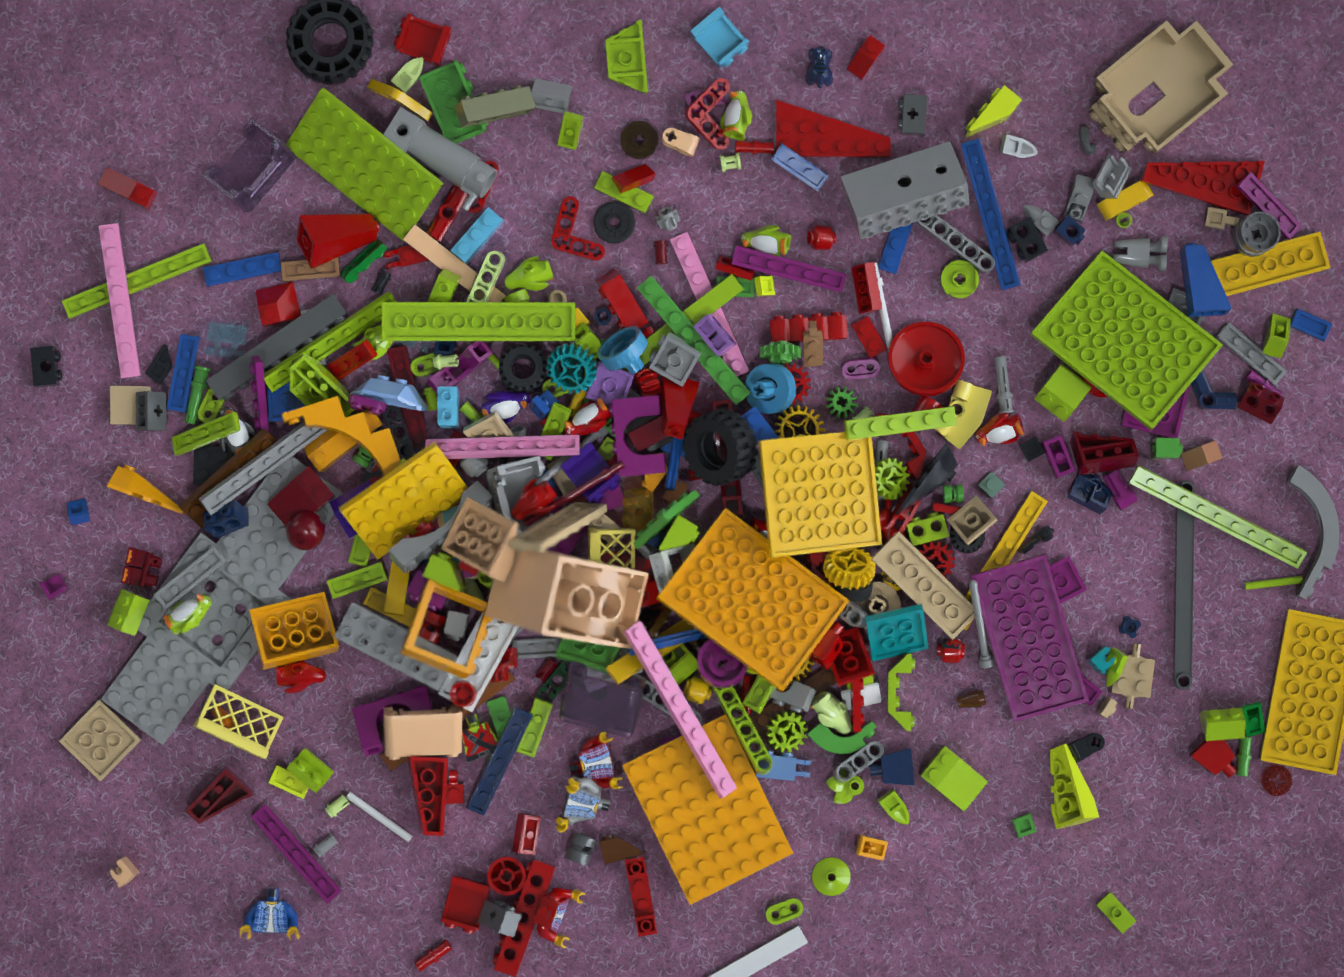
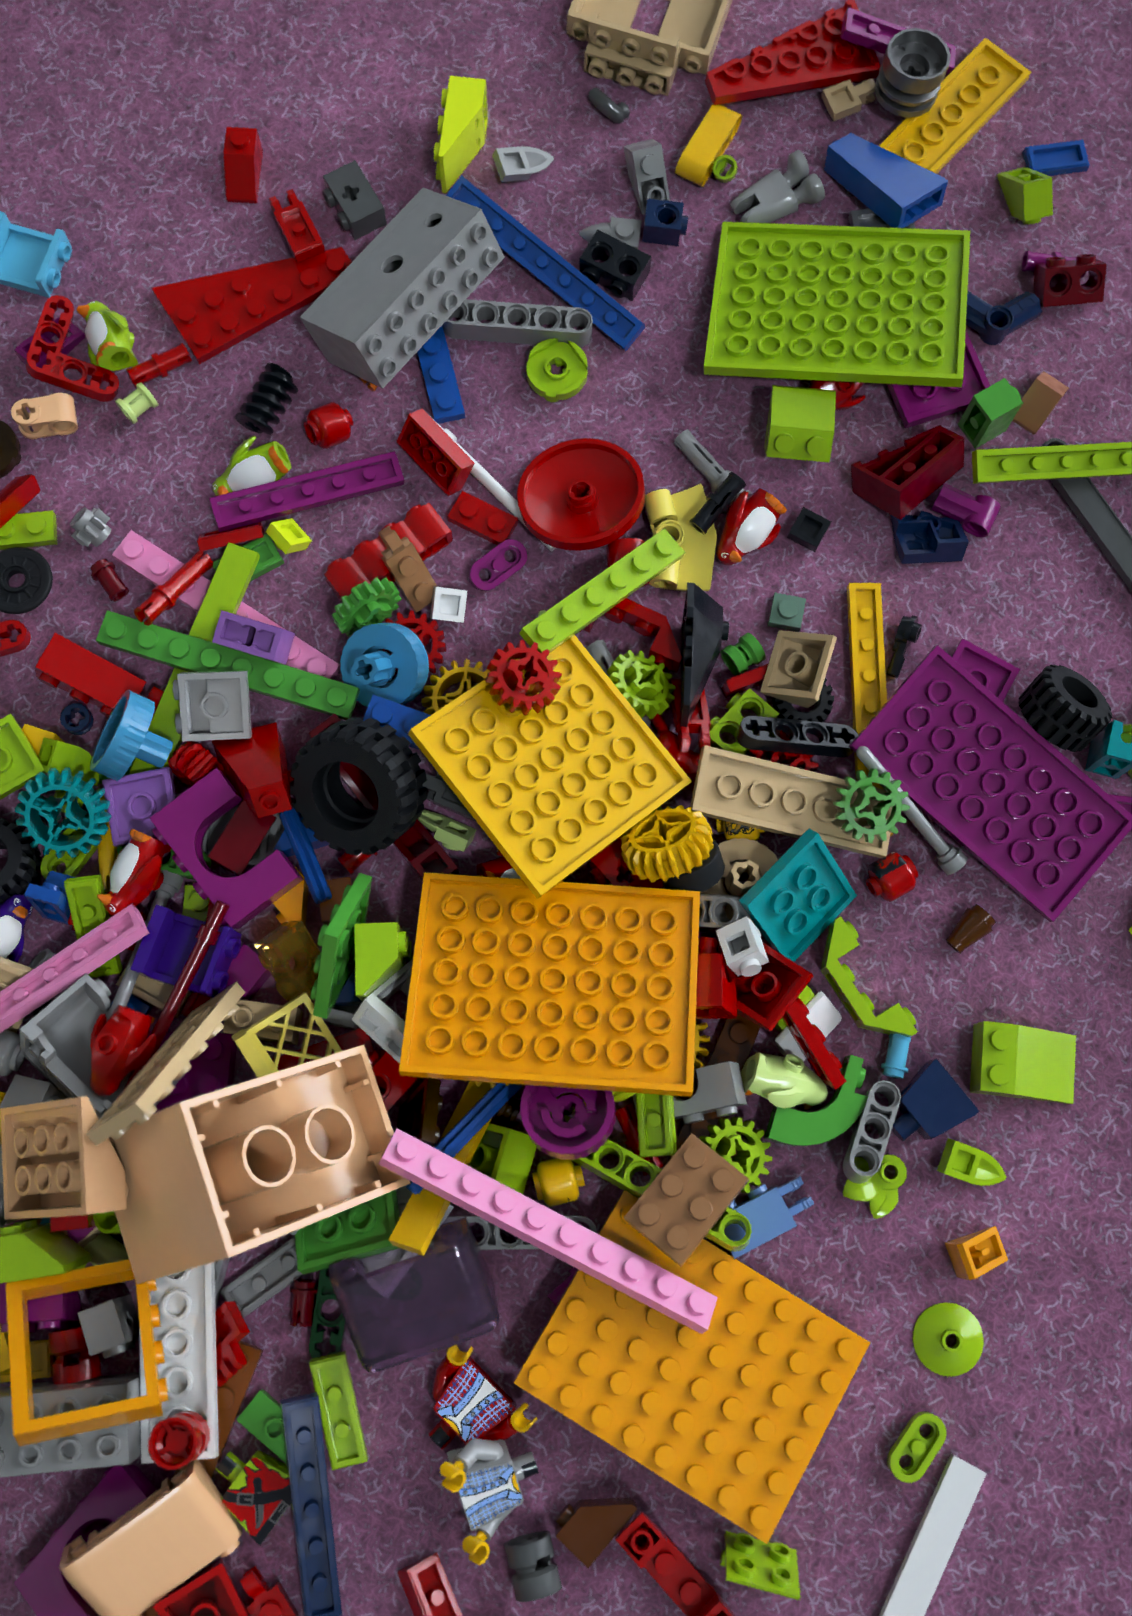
camera: 30 degrees left, 10 degrees down
(681, 912) = (761, 1565): none -> lime hinge
(685, 285) = (165, 595): none -> red pin
(750, 491) = (448, 831): none -> yellowish green plate
(750, 735) = (686, 1199): none -> medium nougat plate
(798, 205) = (267, 399): none -> black piece
(799, 167) = (236, 351): tile -> none
(819, 67) = (186, 214): dark blue animal -> none
(822, 374) = (448, 604): none -> white plate
(822, 445) = (539, 677): none -> red gear
(838, 408) = (499, 615): bright green gear -> none
(852, 639) = (742, 947): none -> white brick
(873, 113) = (297, 227): none -> red hinge
(894, 736) = (896, 1056): none -> medium azure pin
(951, 550) = (760, 734): none -> black beam
(966, 613) = (867, 791): none -> bright green gear
(991, 408) = (717, 503): none -> black pin
(1058, 457) = (854, 513): magenta brick -> none
(1091, 624) = (1065, 708): none -> black tyre
(1111, 177) = (672, 121): light grey hinge -> none
(1134, 624) = (1121, 683): dark blue plate -> none
(1251, 353) = (1011, 236): light grey tile -> none

